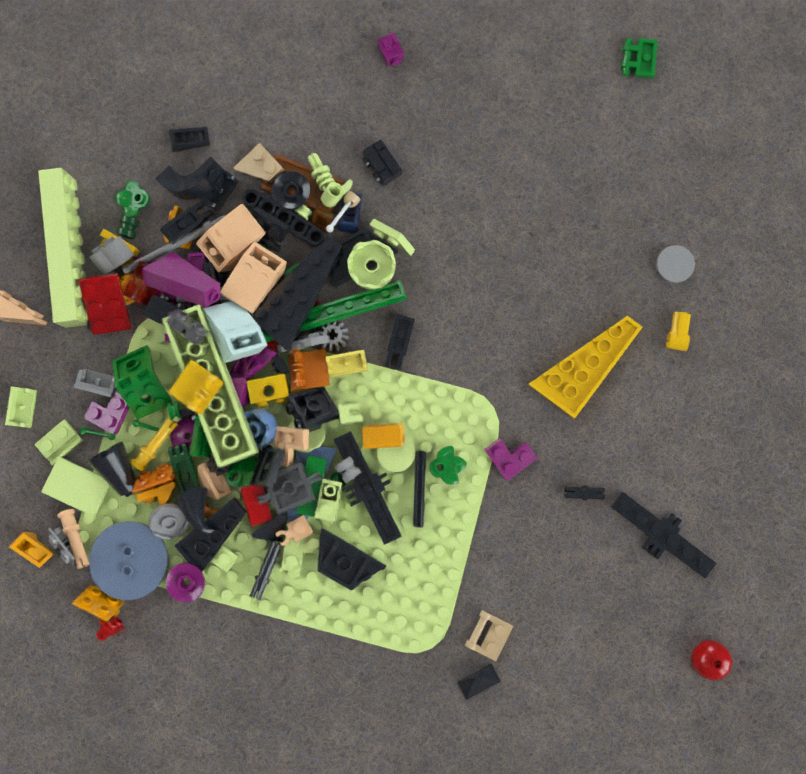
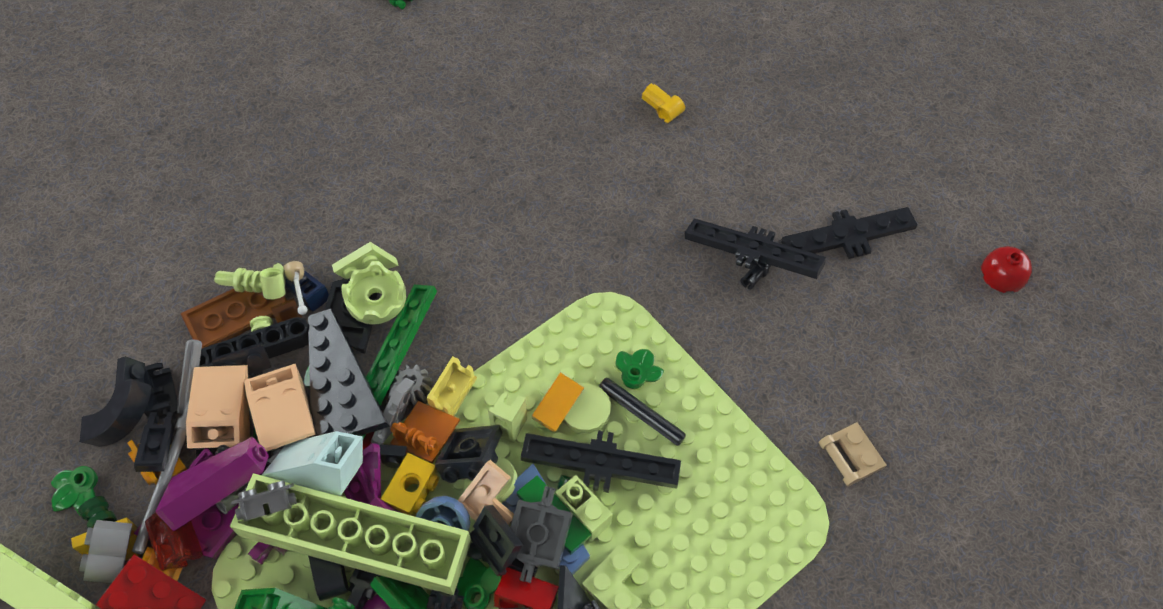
camera: 60 degrees left, 25 degrees down
(160, 308) = (218, 539): black slope -> none
(175, 147) = (71, 400): black slope -> none
(196, 387) = (339, 541): yellow hinge -> none
(243, 198) = (191, 360): none -> light grey axle
(260, 164) = (173, 332): tan wing -> none
(287, 182) = (226, 310): black dish -> none
(297, 529) = (591, 566): light nougat plate -> none
(344, 561) = (665, 541): black wing -> none
(347, 469) = (572, 459): light grey wheel -> none
(381, 162) = (287, 226): black brick -> none
(390, 50) = (193, 149): magenta brick -> none
(399, 339) = (472, 328): black hinge -> none
(478, 681) = (898, 501): black slope -> none
(510, 463) = (678, 313): magenta plate -> none
(580, 374) = (638, 198): yellow wing -> none
(594, 481) = (755, 248): none -> black hinge
(675, 264) = (599, 71): light grey tile -> none

